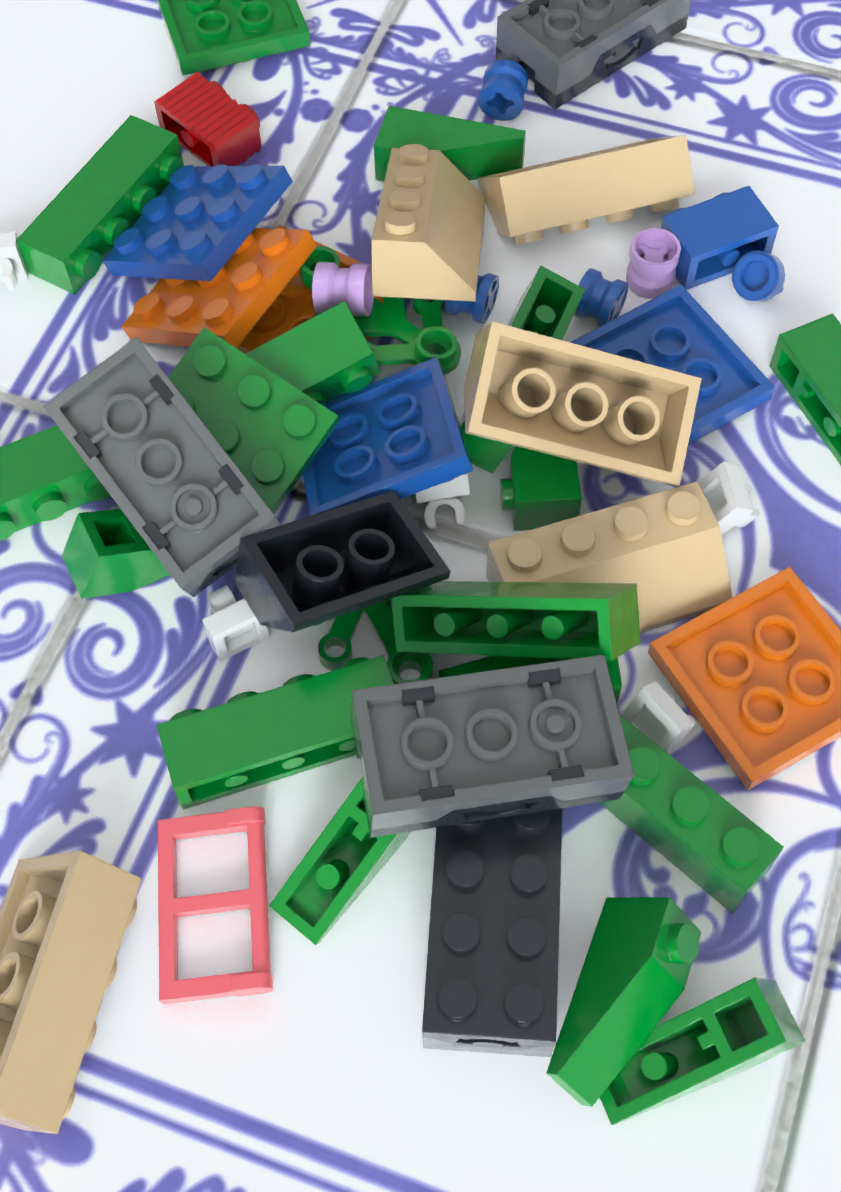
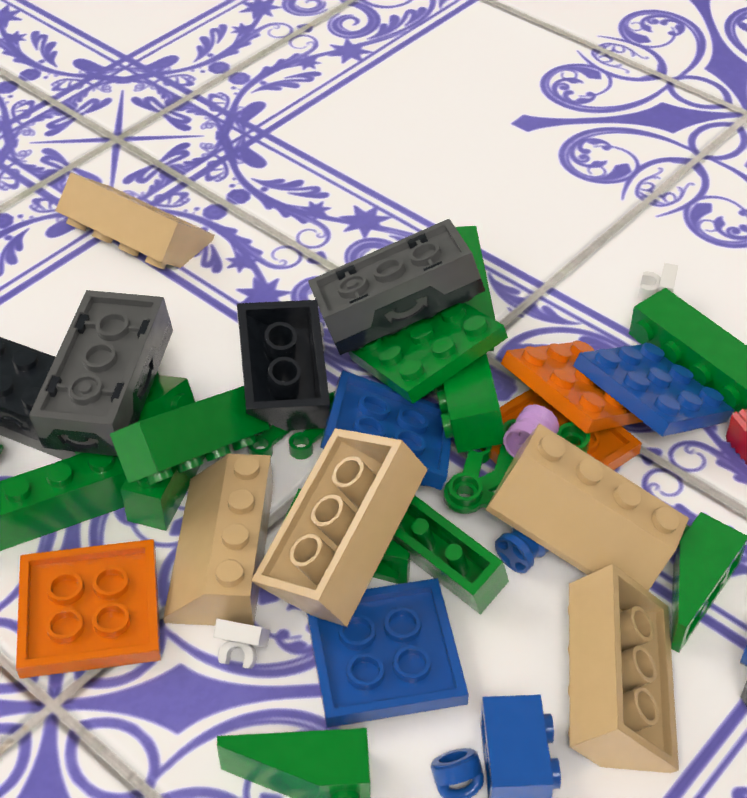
camera: 110 degrees right, 15 degrees down
(171, 908) = (143, 286): coral window -> none
(266, 733) = (213, 337): green brick -> none
(601, 298) = (481, 631): blue wheel -> none
(652, 262) = (504, 676): lavender wheel -> none
(659, 717) = (96, 522): white tile -> none

